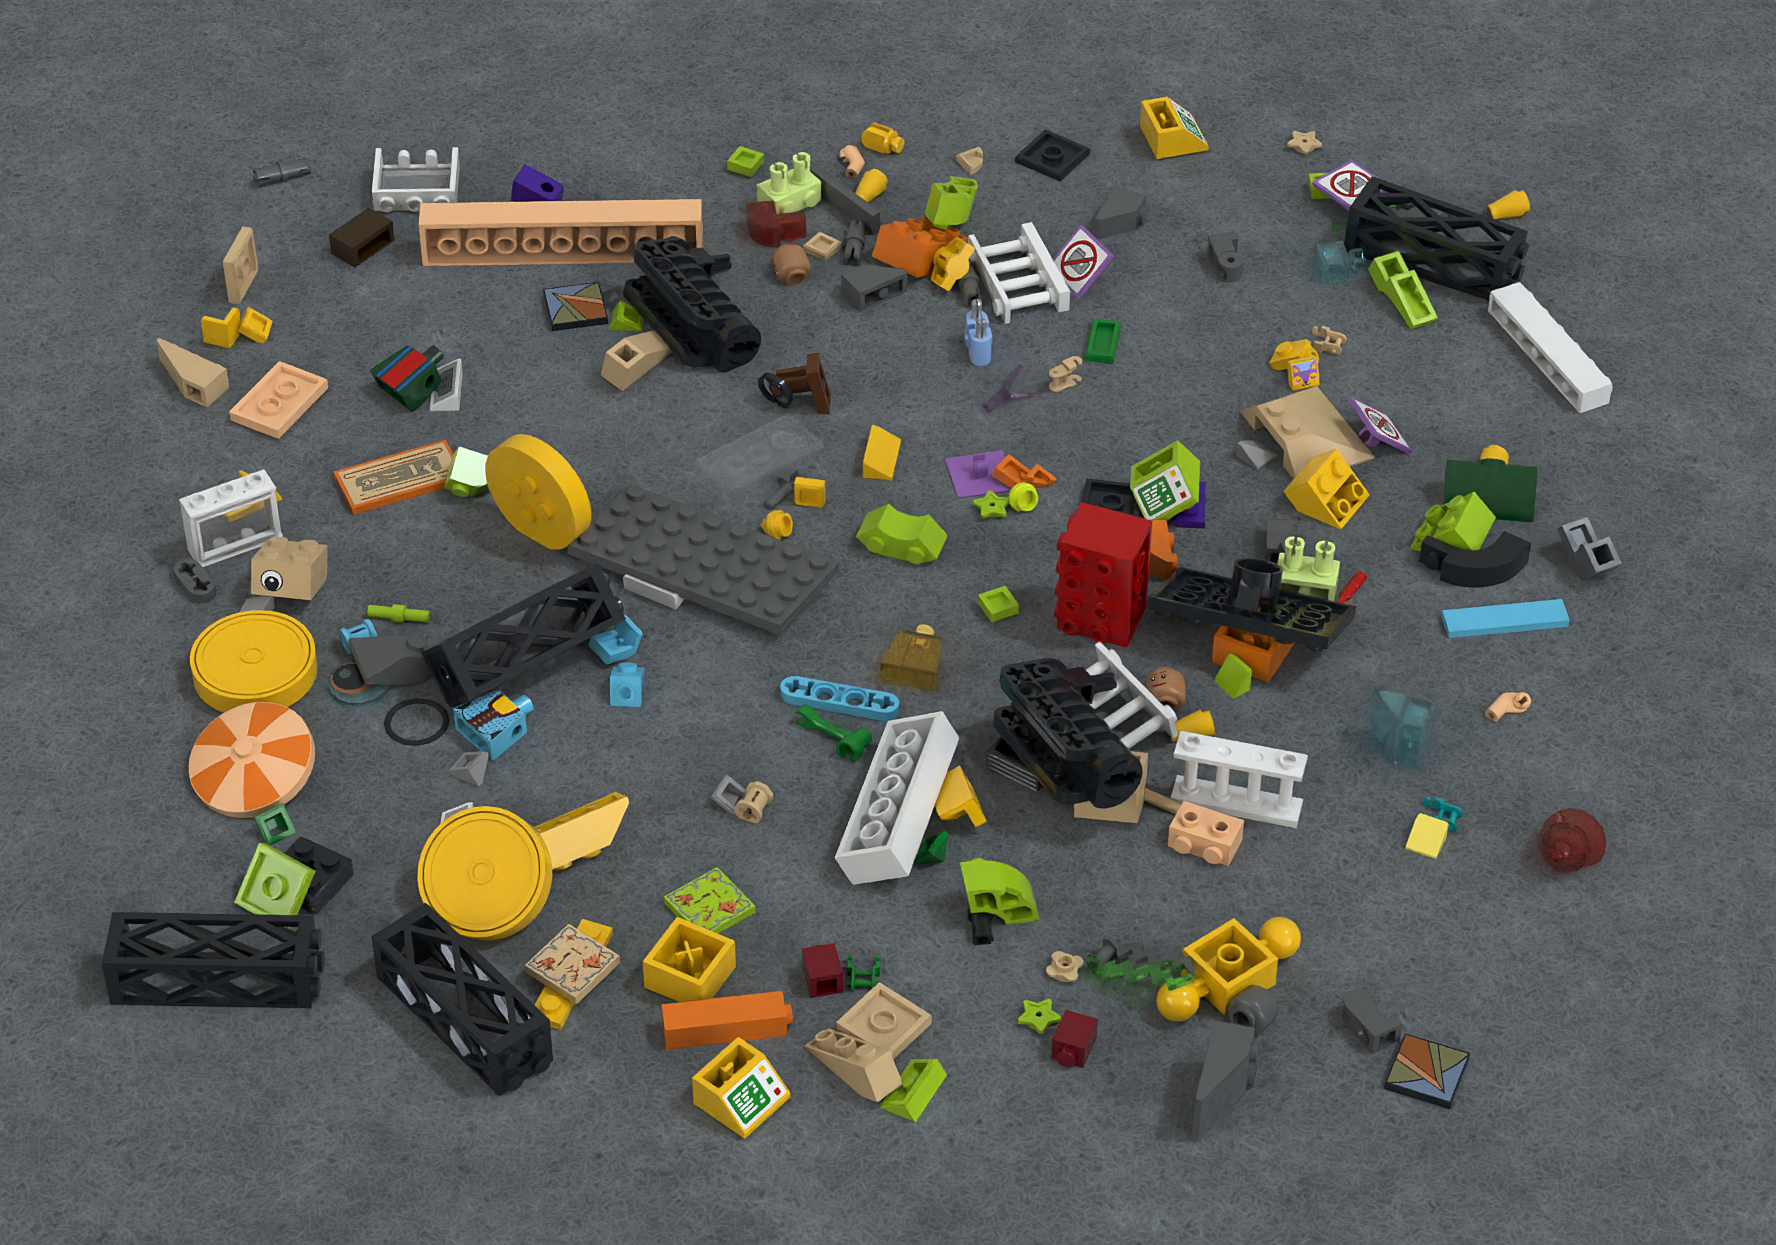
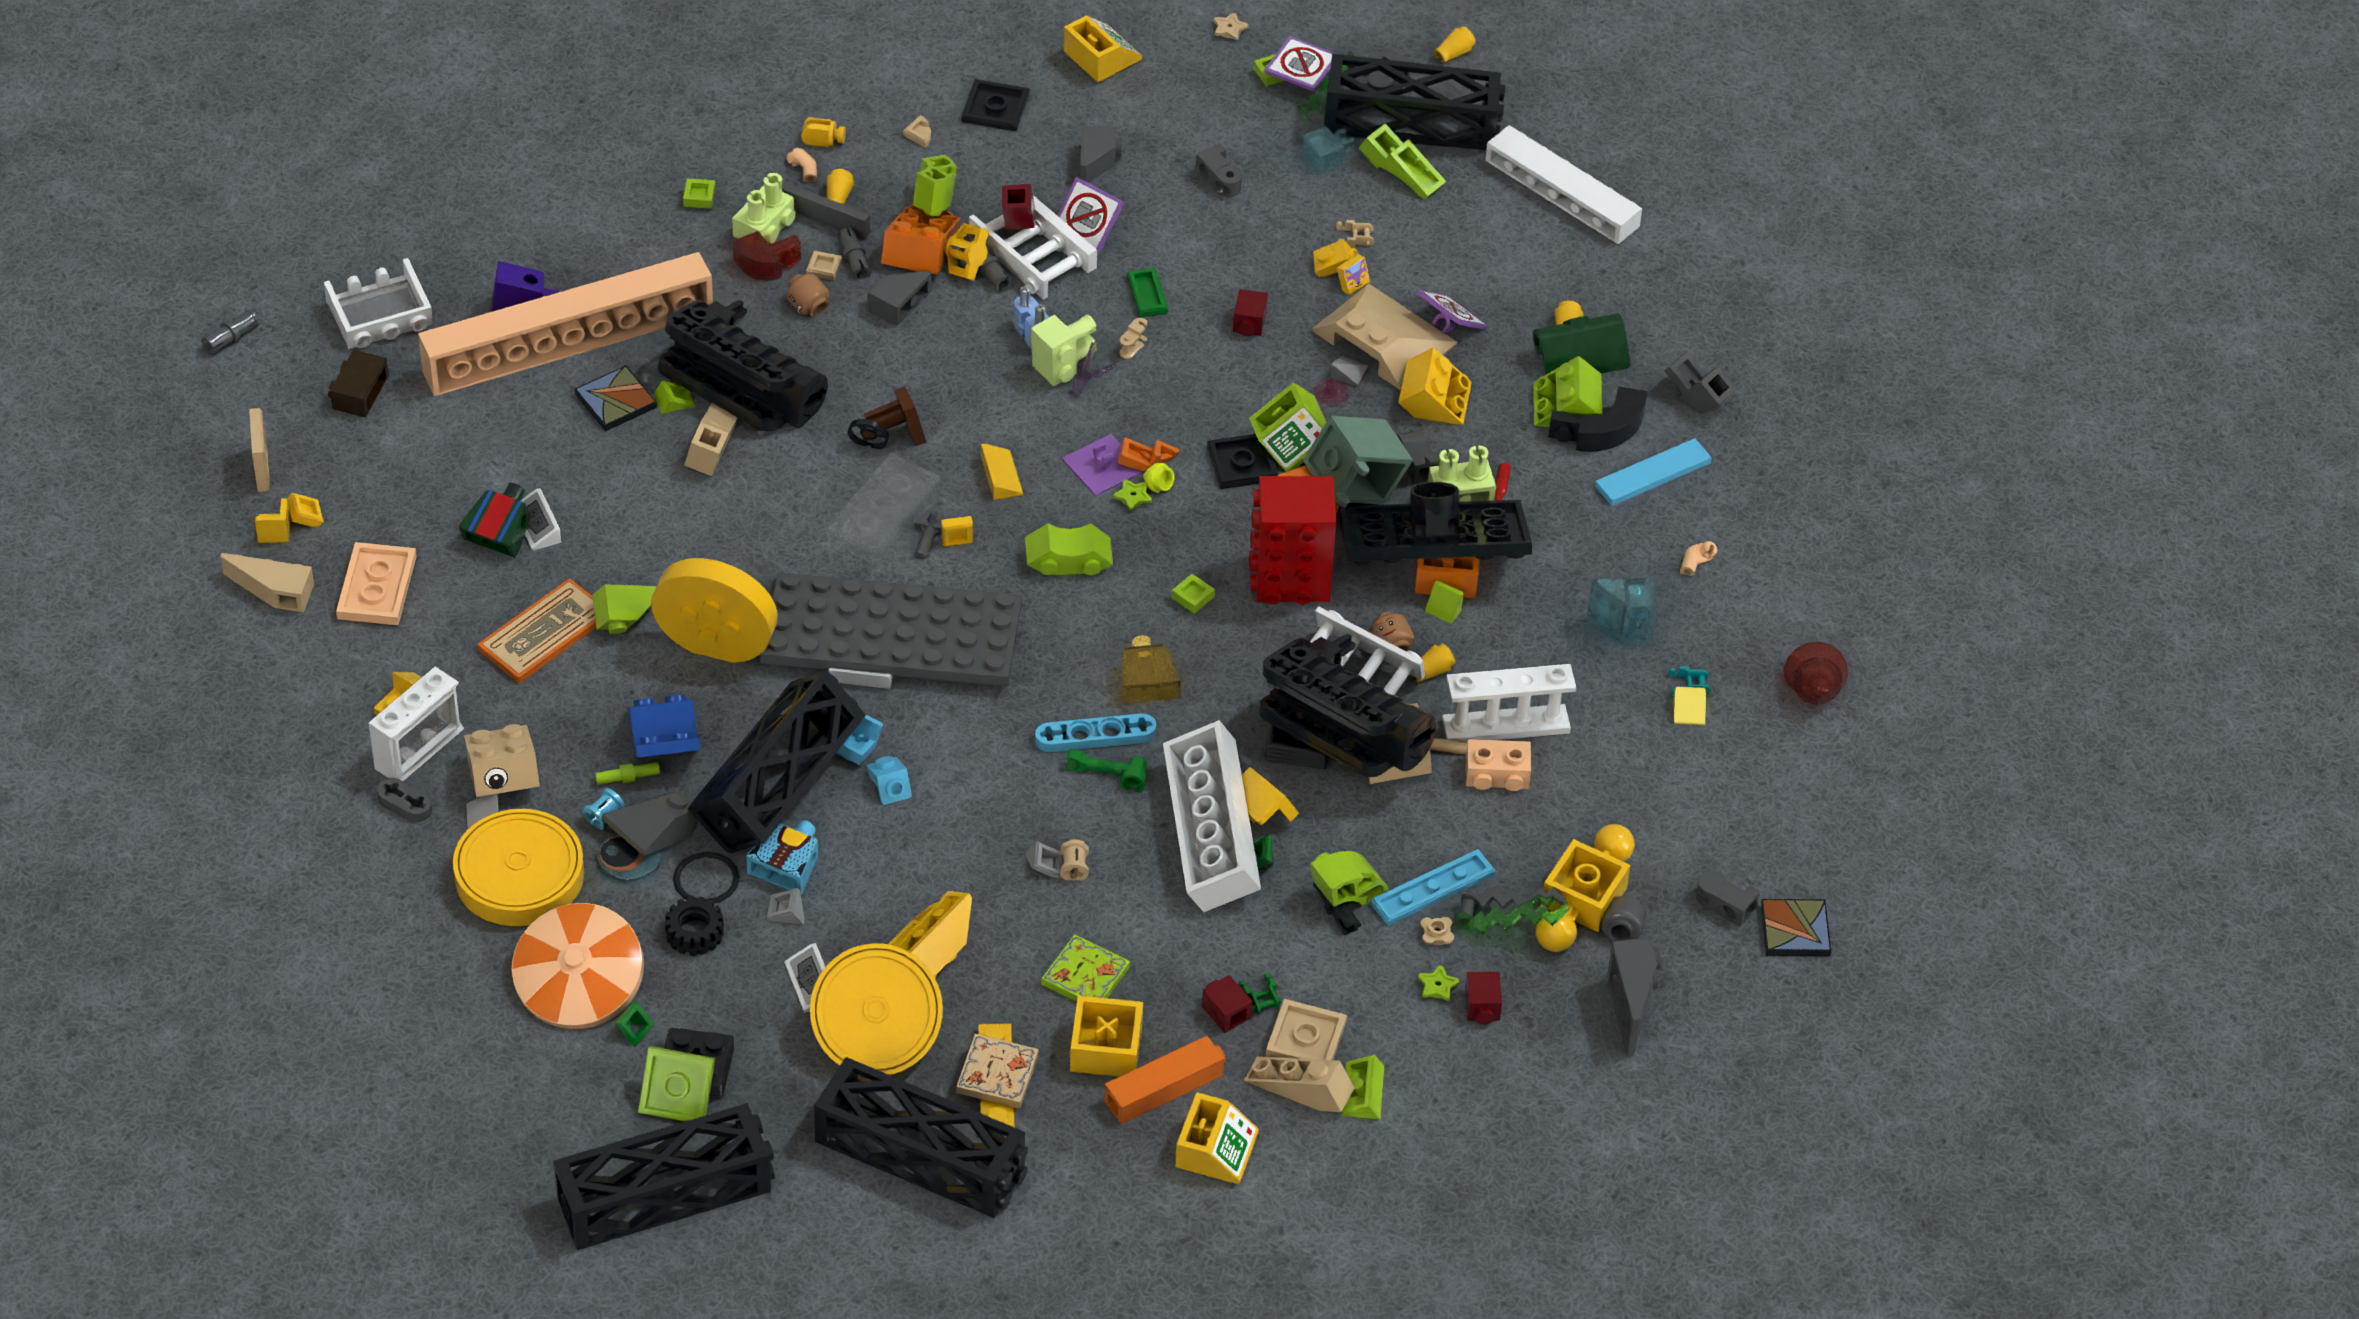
camera: 25 degrees left, 5 degrees up
(377, 770) = (699, 940): none -> black tyre
(446, 580) = (663, 726): none -> blue bracket
(777, 524) = (942, 573): yellow plate -> none
(983, 359) = (1060, 347): none -> yellowish green brick
(1013, 235) = (1018, 206): none -> dark red brick
(1083, 926) = (1432, 887): none -> medium azure tile
(1187, 380) = (1250, 312): none -> dark red brick
(1209, 526) = (1361, 457): none -> sand green container
(1228, 469) = (1331, 393): none -> clear pink plant

